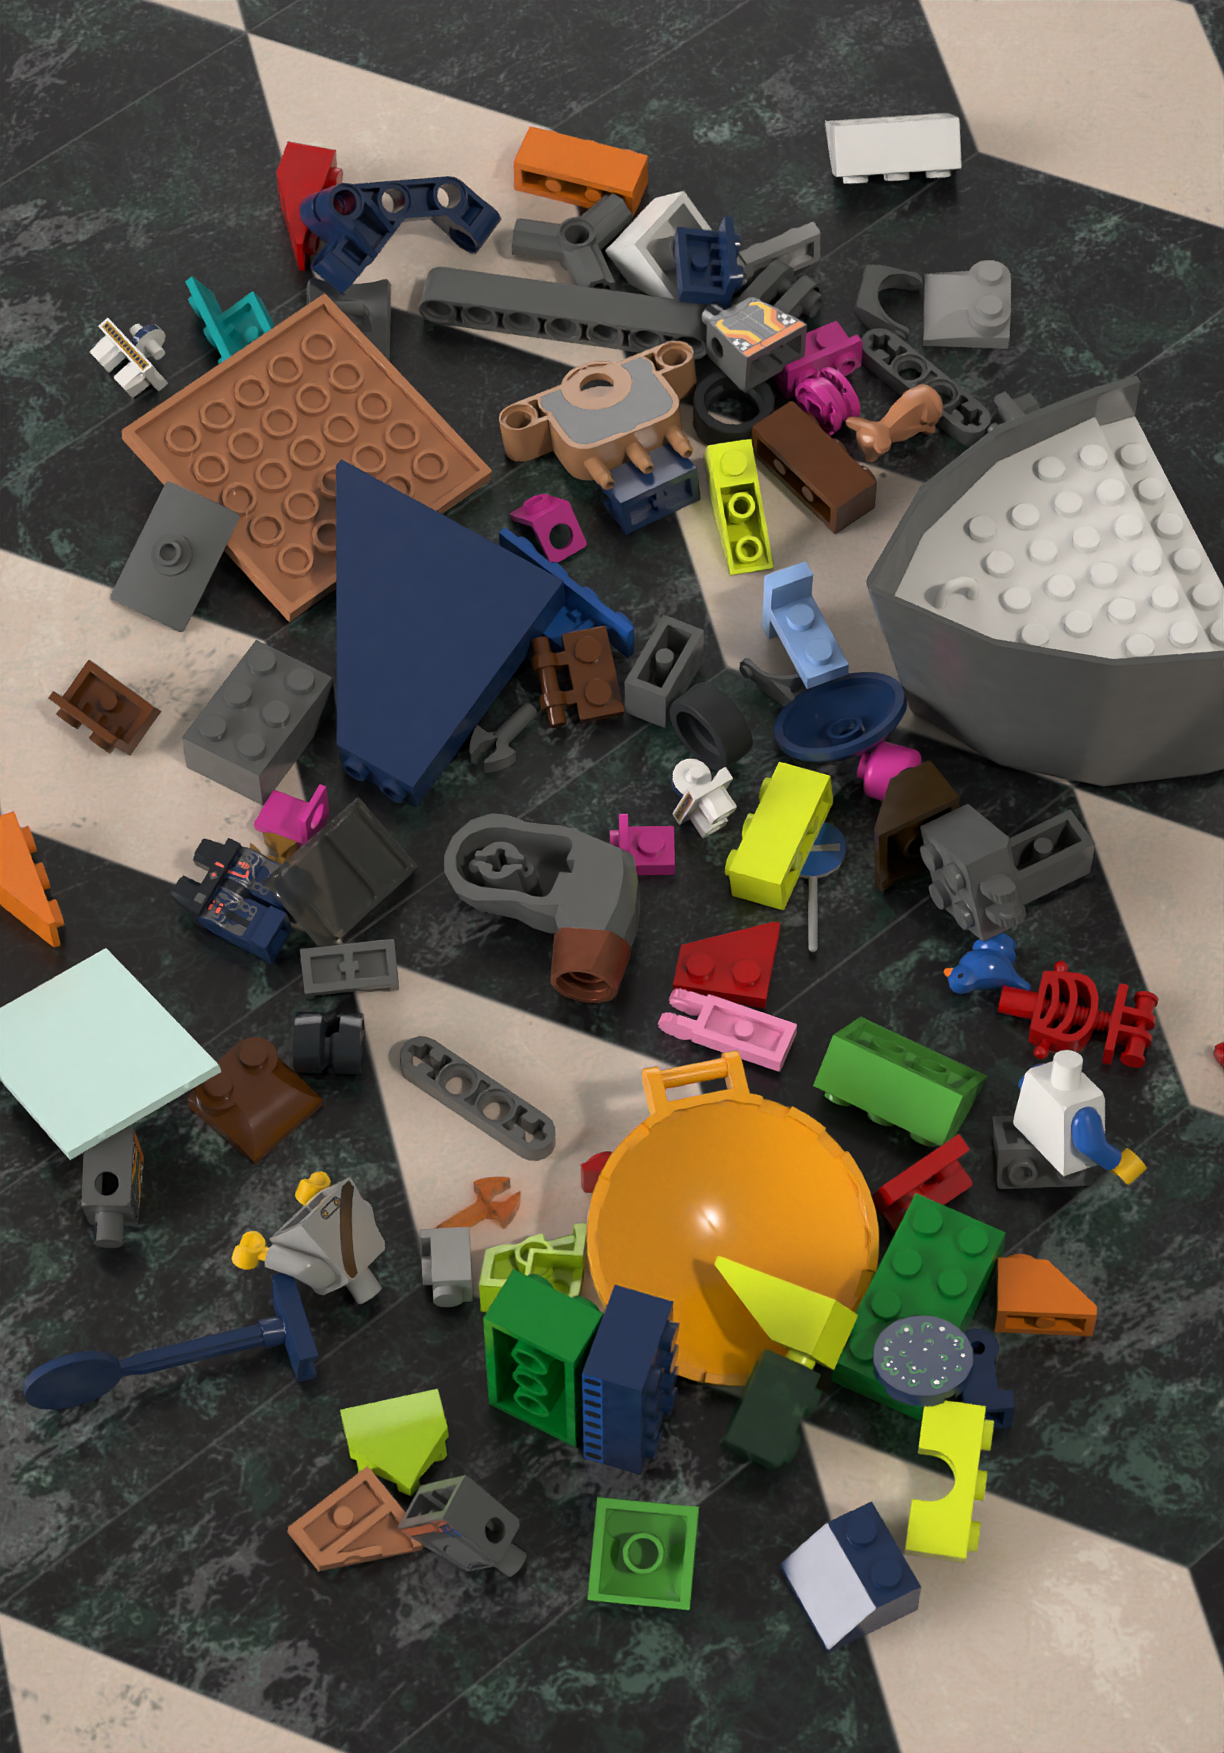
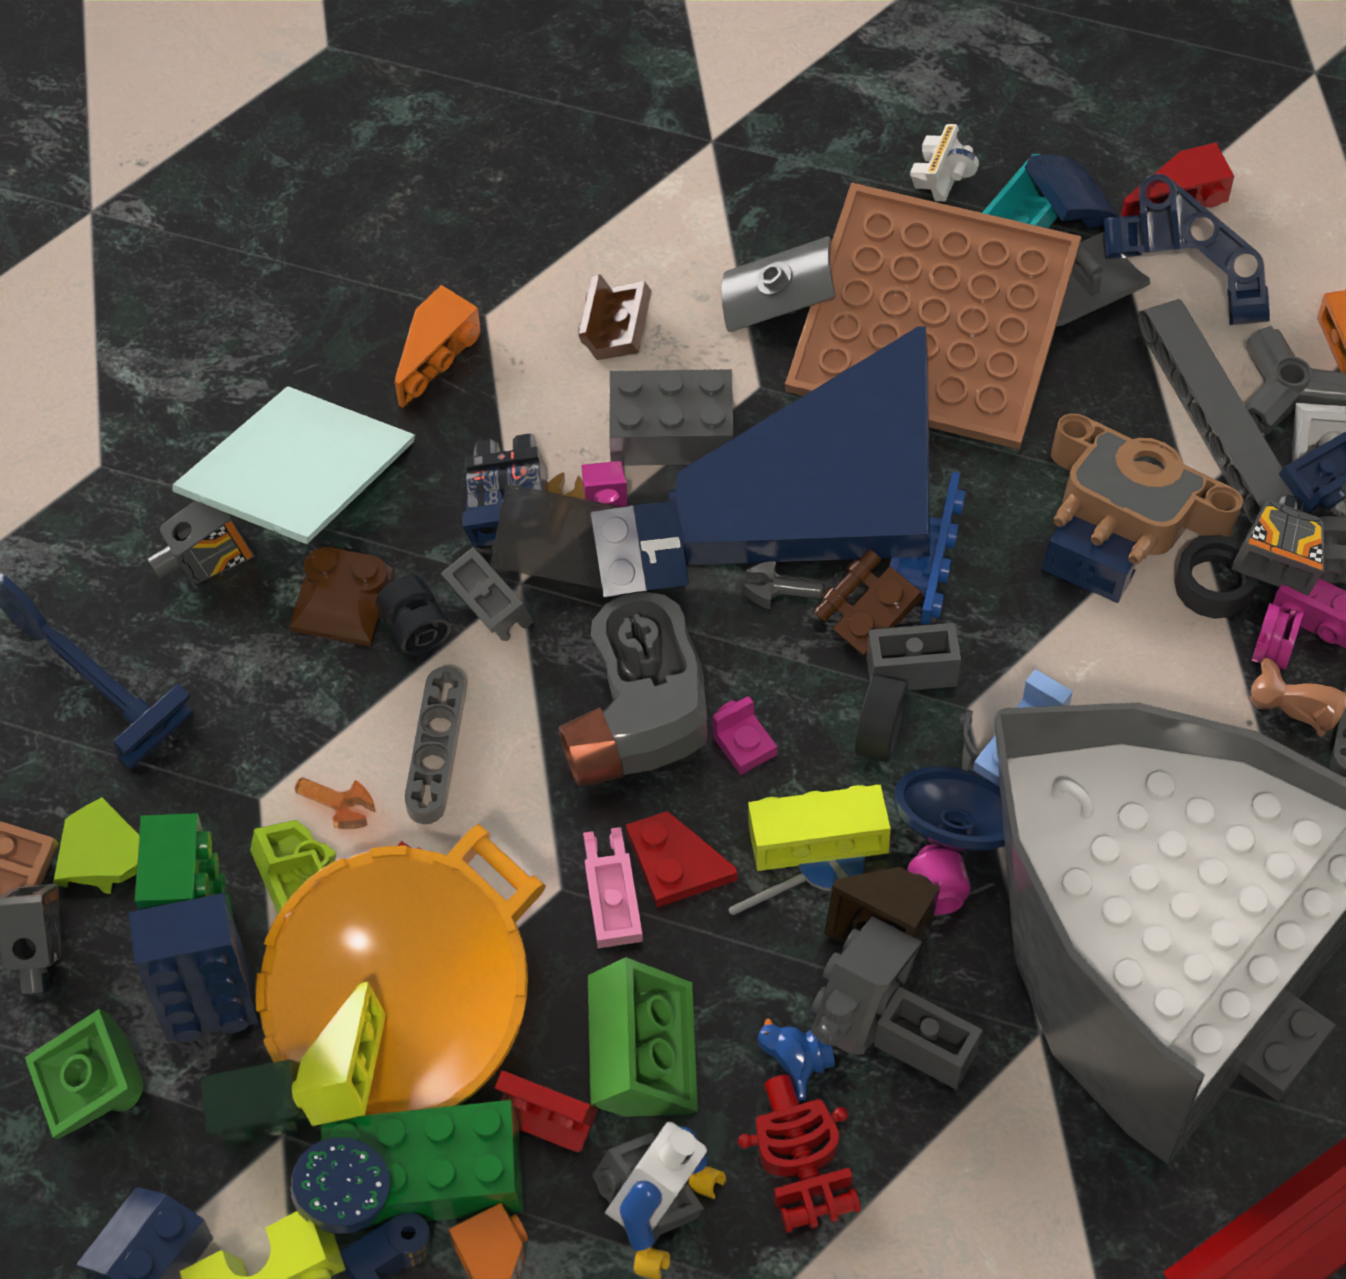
camera: 60 degrees right, 0 degrees up
(247, 279) = (1070, 189): none -> dark blue slope
(324, 1242) = (228, 703): light grey torso -> none
(404, 819) = (639, 548): none -> slope
(447, 1264) = (266, 801): light grey brick -> none
(542, 514) = (1008, 498): dark pink bracket -> none
(702, 800) = (809, 746): white hips -> none
(738, 506) = (1122, 629): neon yellow slope -> none
(814, 467) = (1209, 658): reddish brown brick -> none

